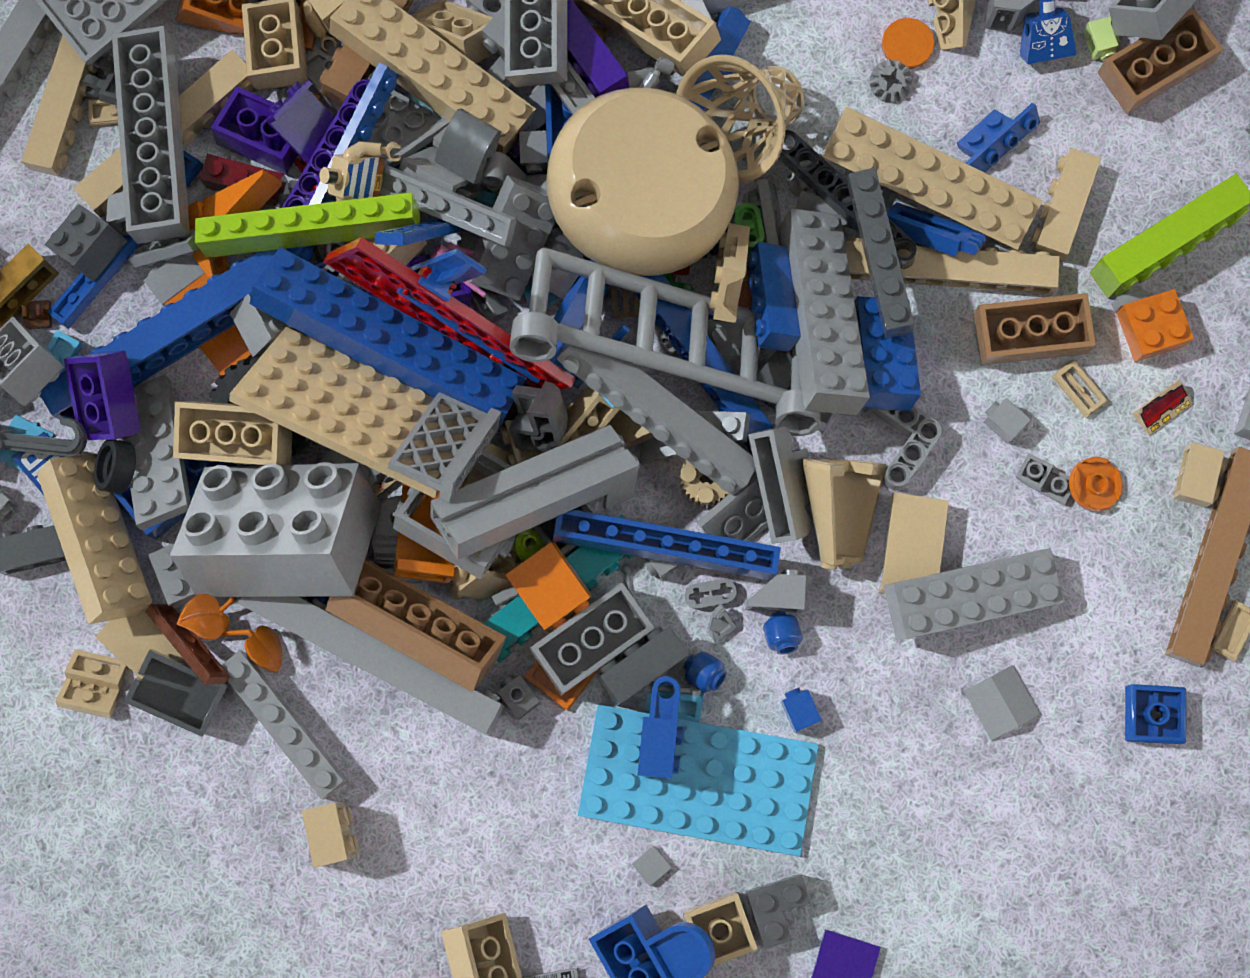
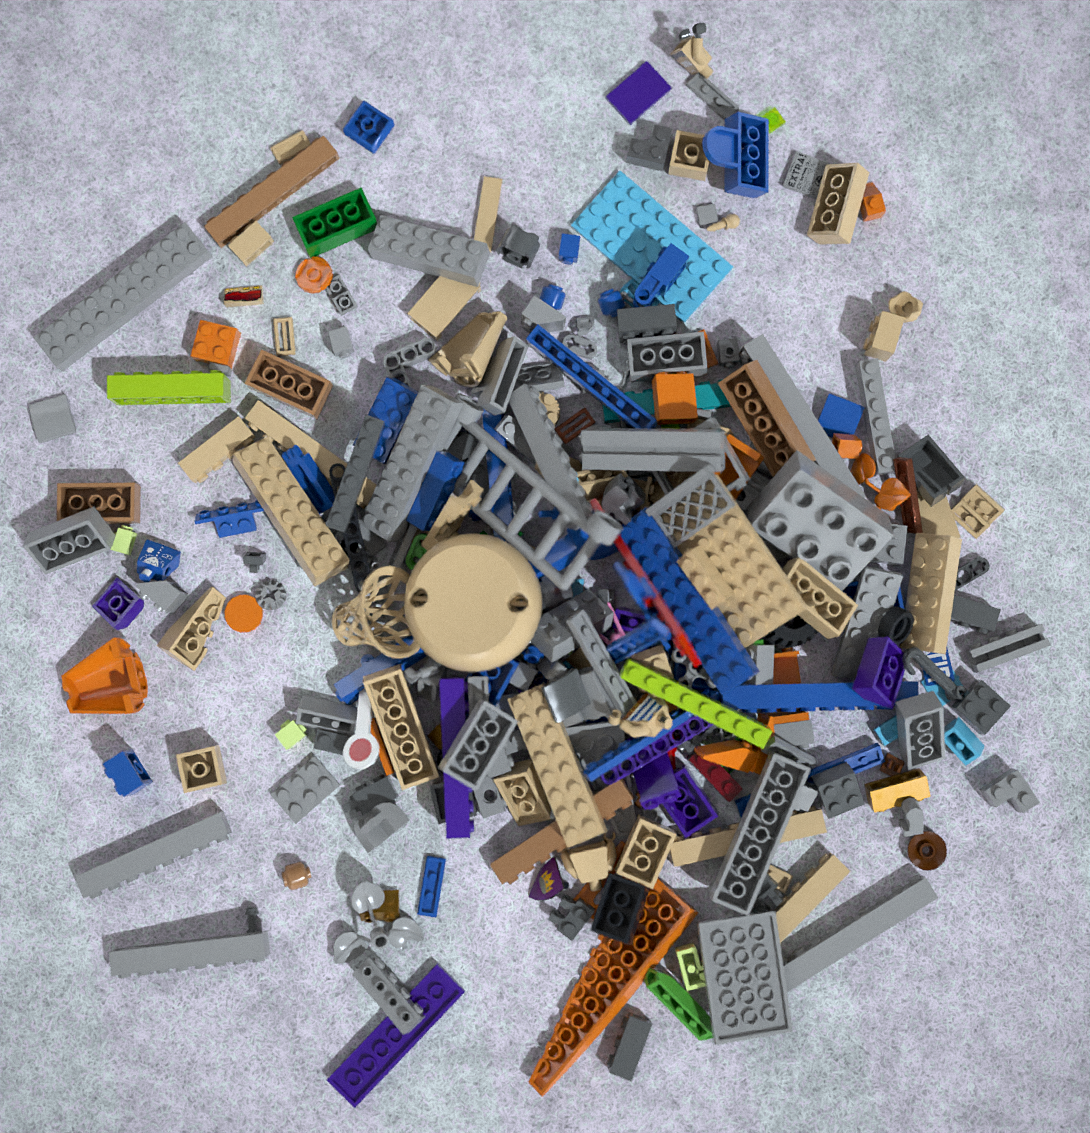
camera: 155 degrees left, 5 degrees up
(56, 595) = (978, 573): none -> dark grey beam
(301, 663) = (847, 445): none -> orange brick
(323, 893) = (906, 306): none -> tan hair
(330, 697) = (840, 416): none -> blue slope
(378, 372) = (705, 577): none -> tan brick
(537, 177) = (532, 654): none -> blue plate
(616, 876) = (731, 221): none -> tan bar
(647, 514) = (570, 438): none -> copper tile
(865, 669) = (518, 247): none -> dark grey brick
(932, 694) = (488, 210): none -> tan tile
(936, 107) = (255, 559): none -> dark grey tile
(1002, 703) = (450, 186): light grey slope -> none
(1113, 563) = (335, 222): none -> green brick

